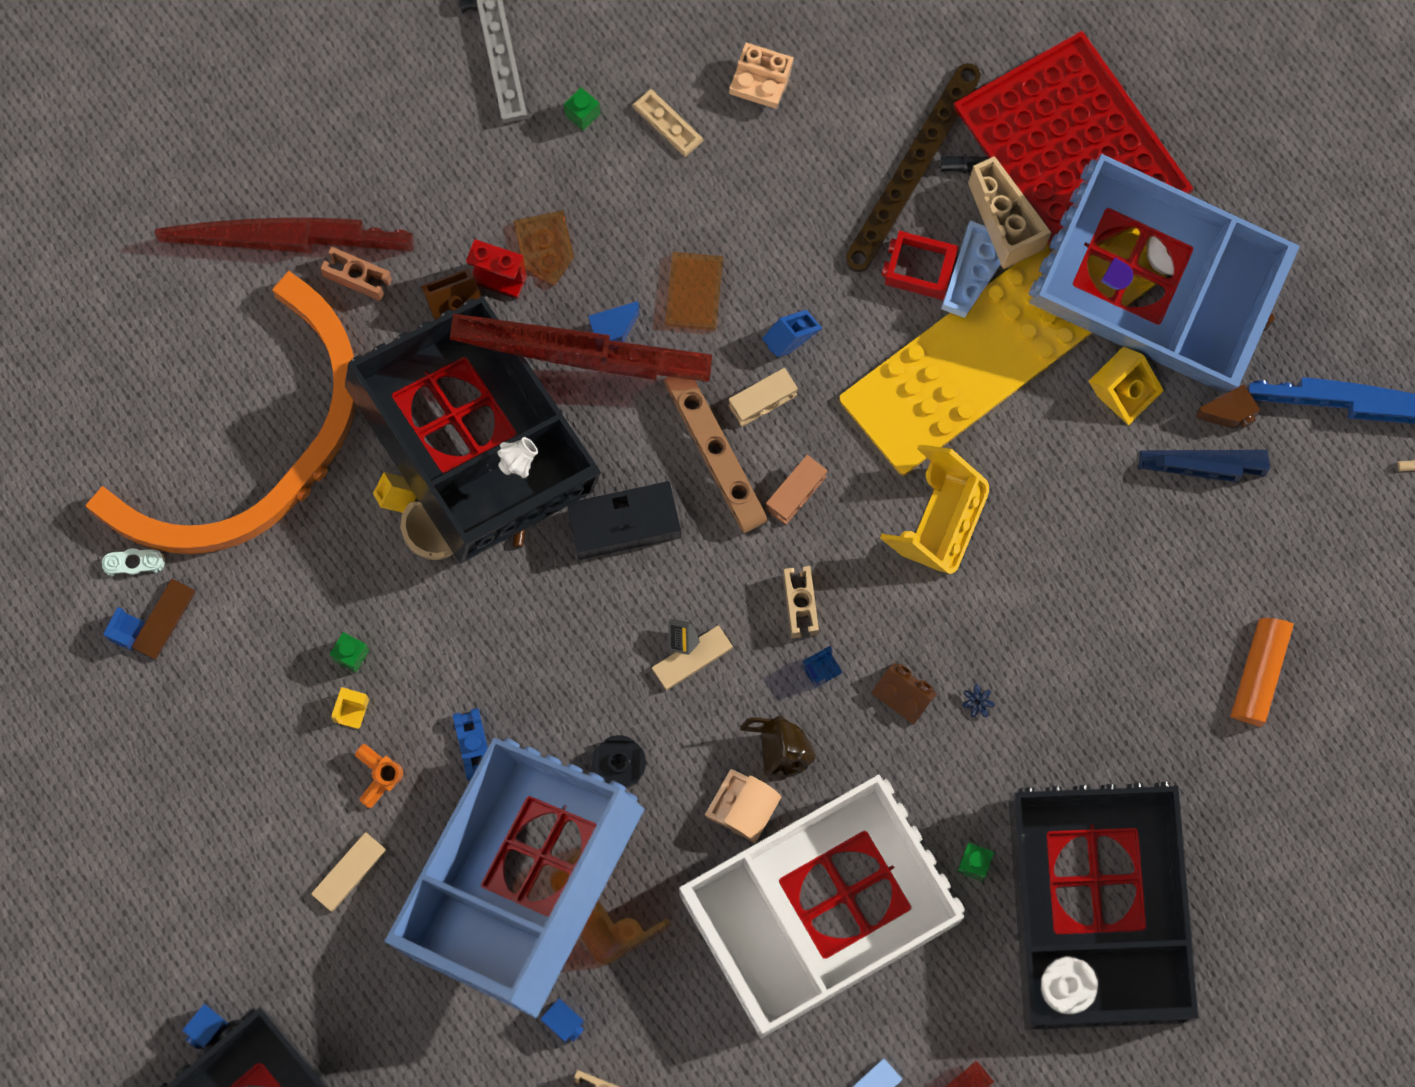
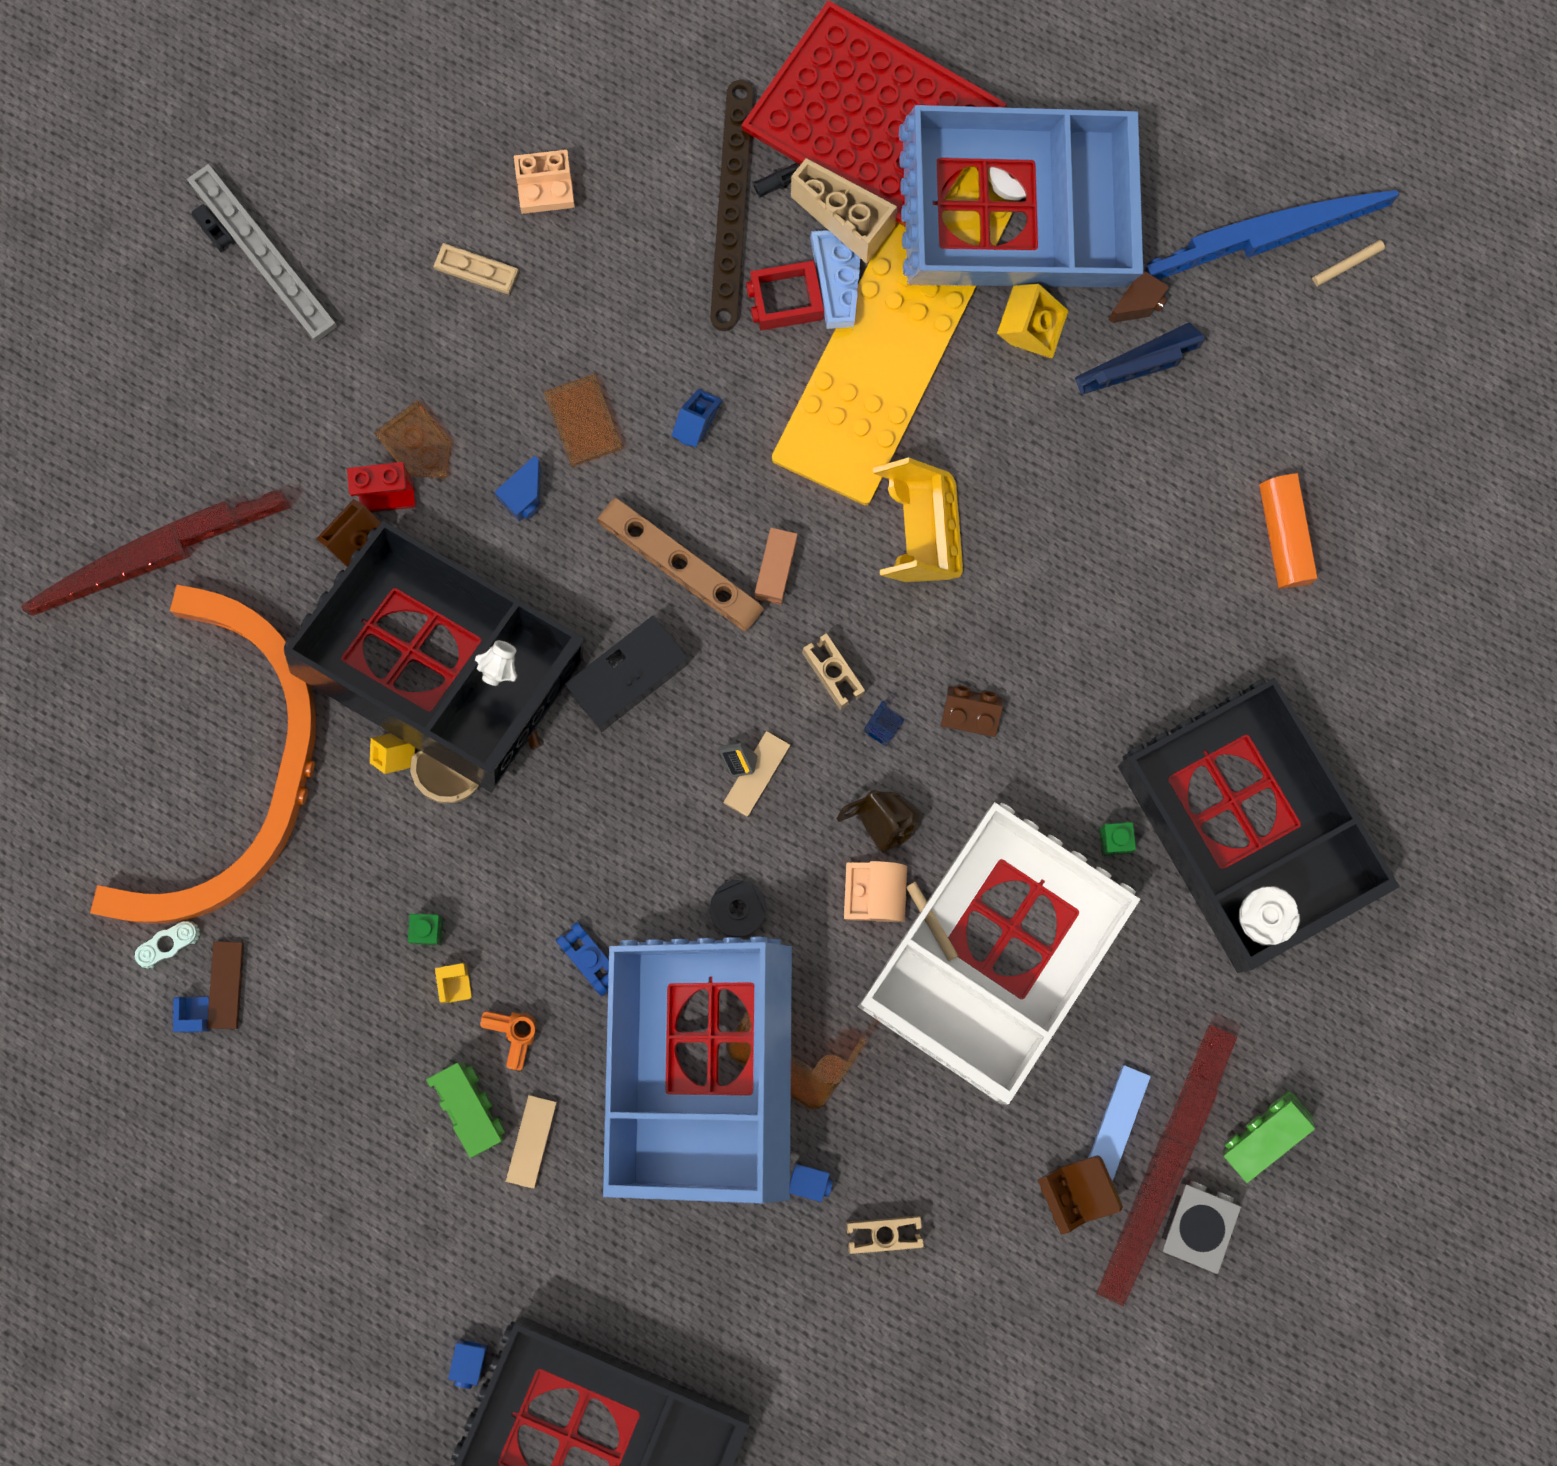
camera: 30 degrees left, 5 degrees up
(310, 816) = (468, 1108): none -> bright green wedge
(351, 265) = (237, 549): nougat piece -> none
(580, 349) = (503, 528): clear red slope -> none
(582, 108) = (386, 292): green brick -> none
(763, 397) = (700, 492): tan piece -> none
(779, 856) = (932, 922): none -> tan bar
(975, 704) = (1044, 690): dark blue plant -> none
(1117, 275) = (985, 216): dark purple tile -> none

